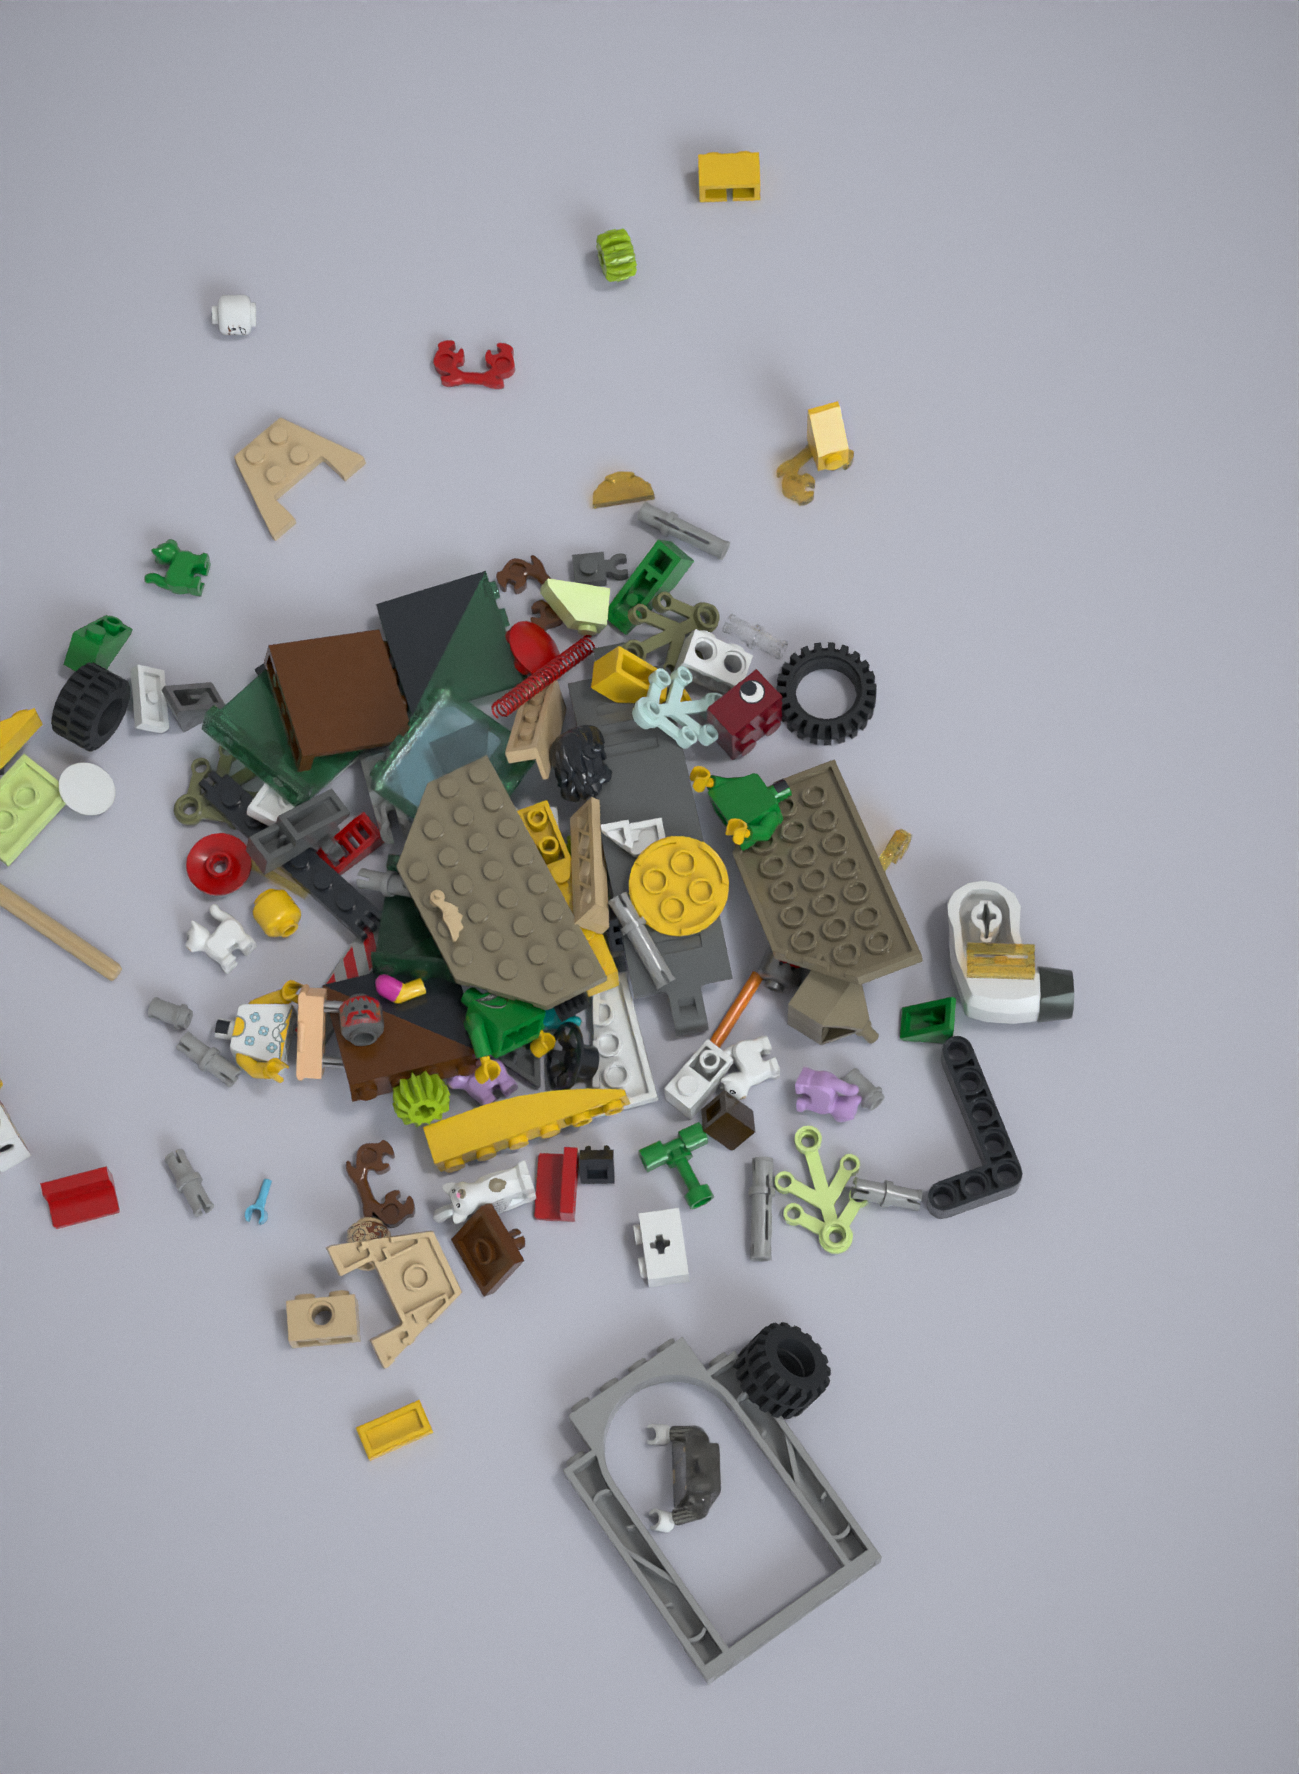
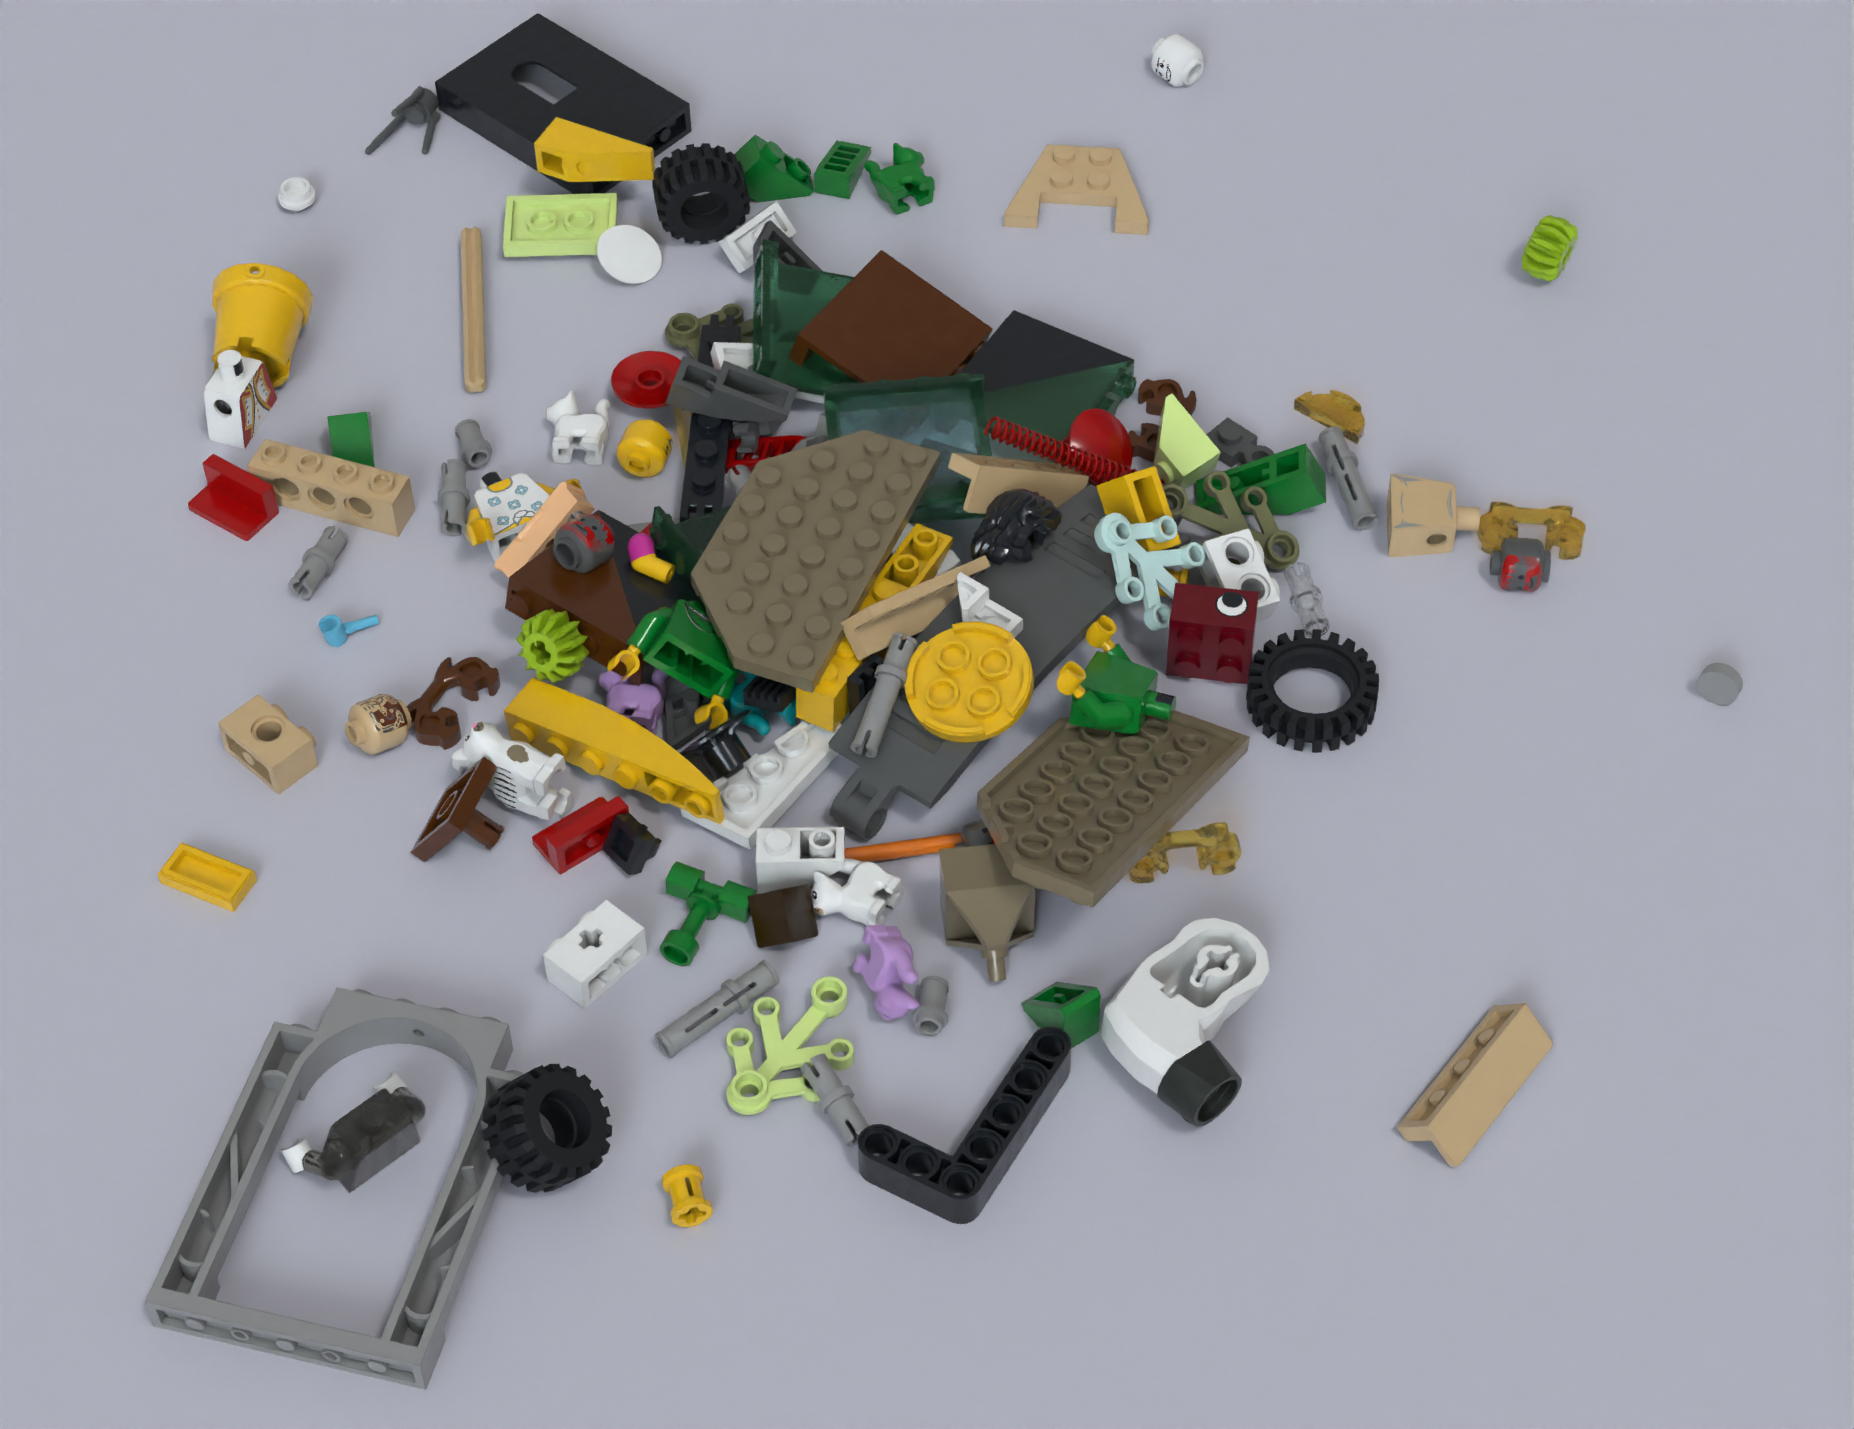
camera: 45 degrees right, 20 degrees down
(94, 1084) = (352, 437): none -> green slope
(134, 1128) = (335, 487): none -> tan brick
(139, 613) = (841, 169): none -> green slope
(413, 1277) = (373, 776): tan wing -> none
(447, 363) = (1317, 218): red helmet -> none
(451, 916) = (746, 522): tan piece -> none
(729, 171) = (1725, 264): yellow piece -> none
(754, 517) = (1425, 516): none -> tan torso
(827, 436) = (1564, 497): yellow slope -> none
(838, 497) = (1521, 564): none -> dark grey head
(879, 1325) = (687, 1195): none -> yellow bush
(1000, 966) = (1172, 999): clear yellow tile -> none
(1019, 475) = (1720, 684): none -> light grey tile
(1163, 846) = (1478, 1082): none -> tan panel

